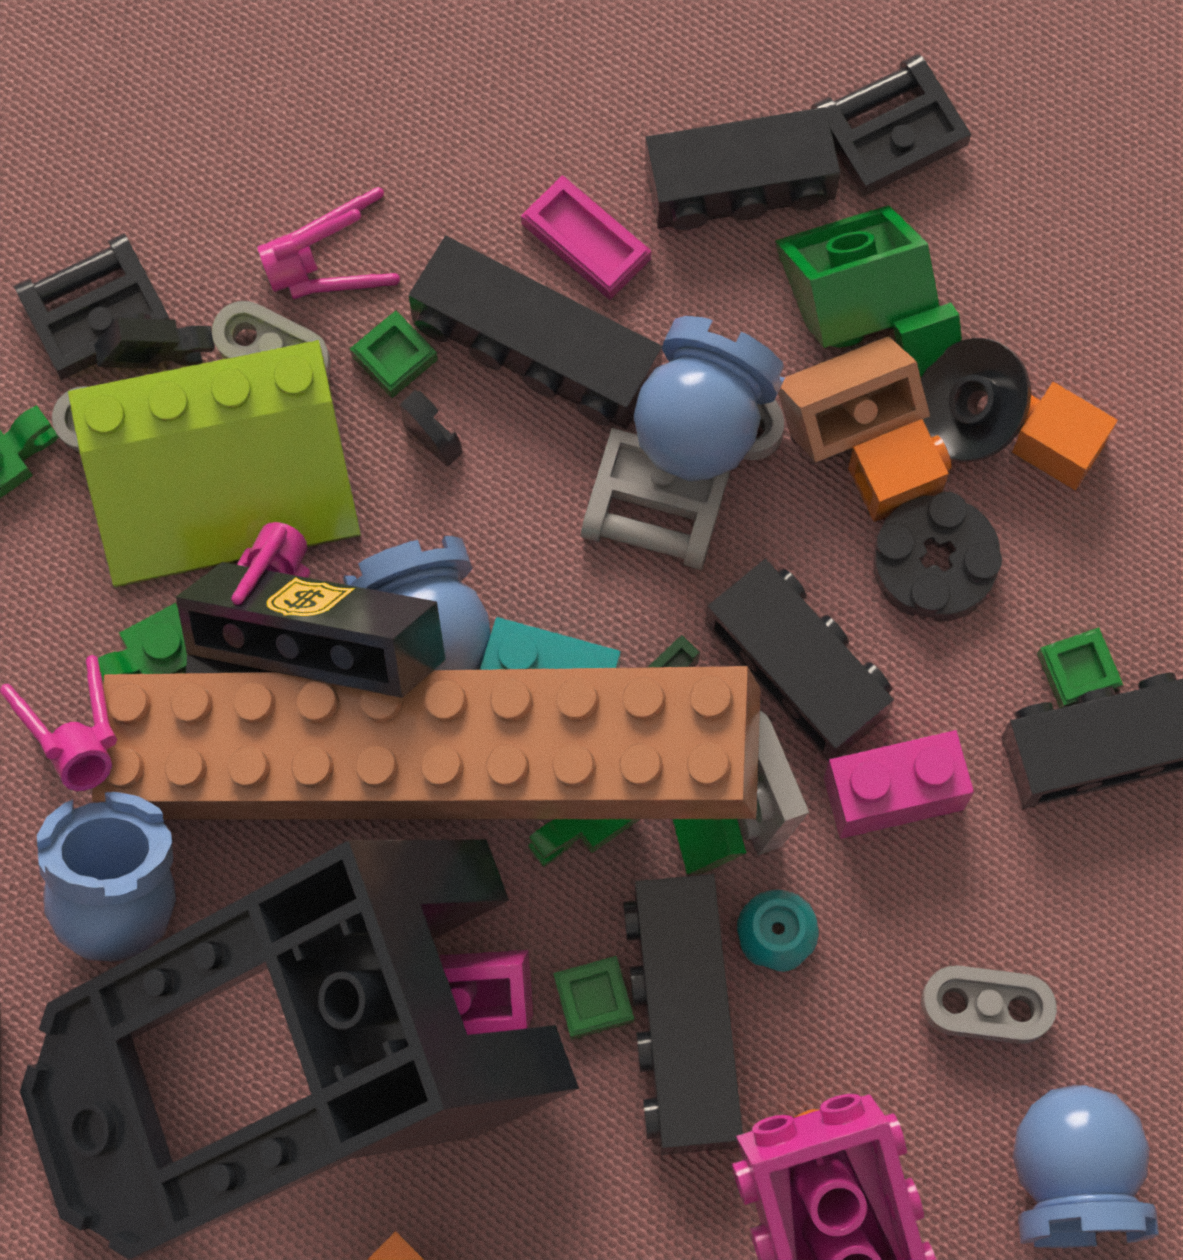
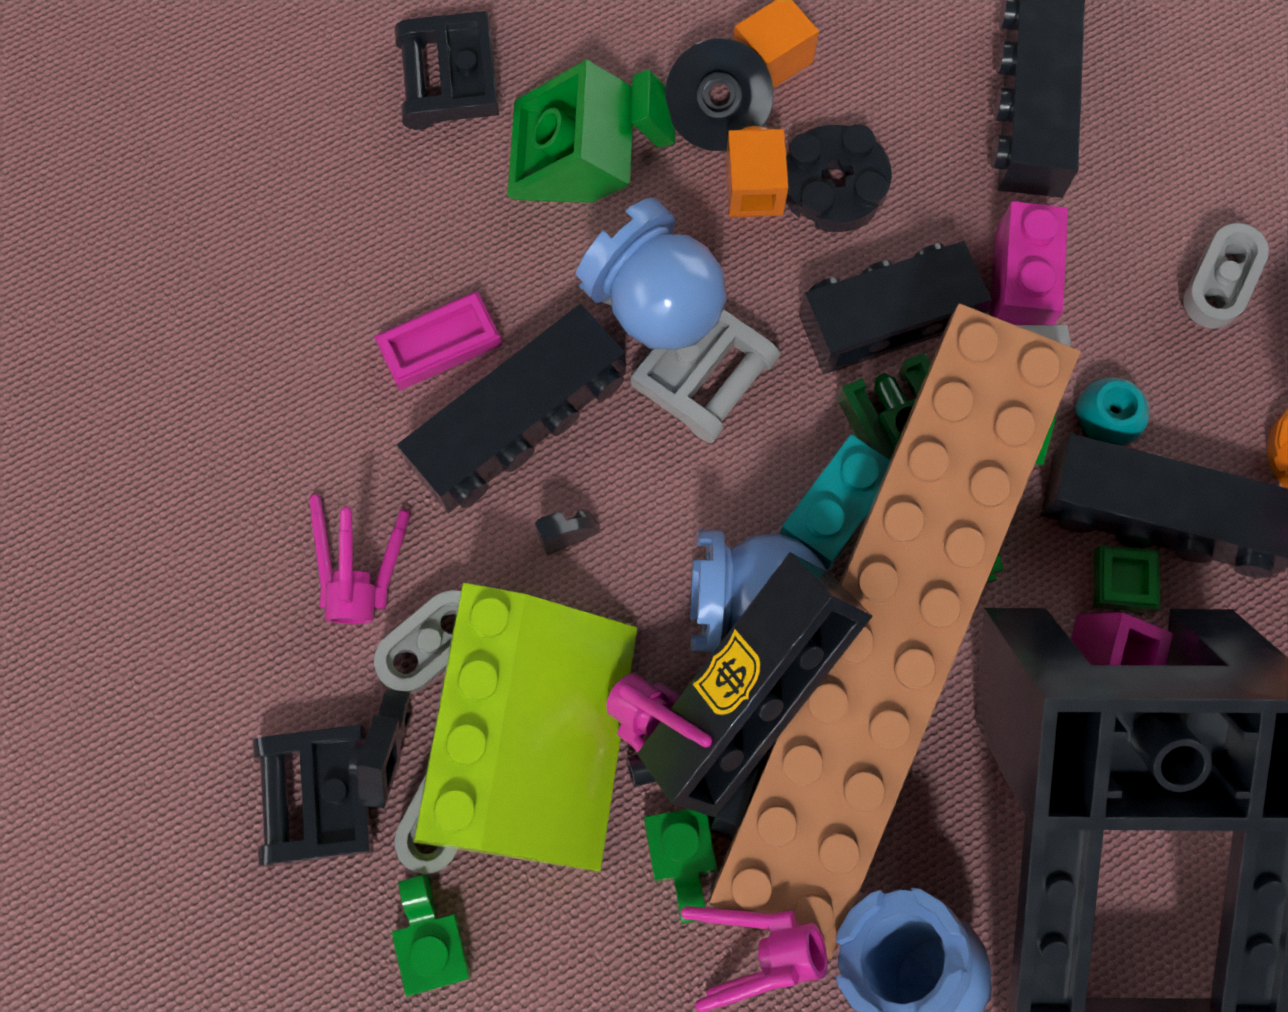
camera: 70 degrees left, 0 degrees up
(393, 354) = (477, 539): green tile -> none
(741, 168) = (437, 192): black brick -> none
(853, 398) = (688, 172): nougat brick -> none
(1078, 666) = (965, 112): green tile -> none

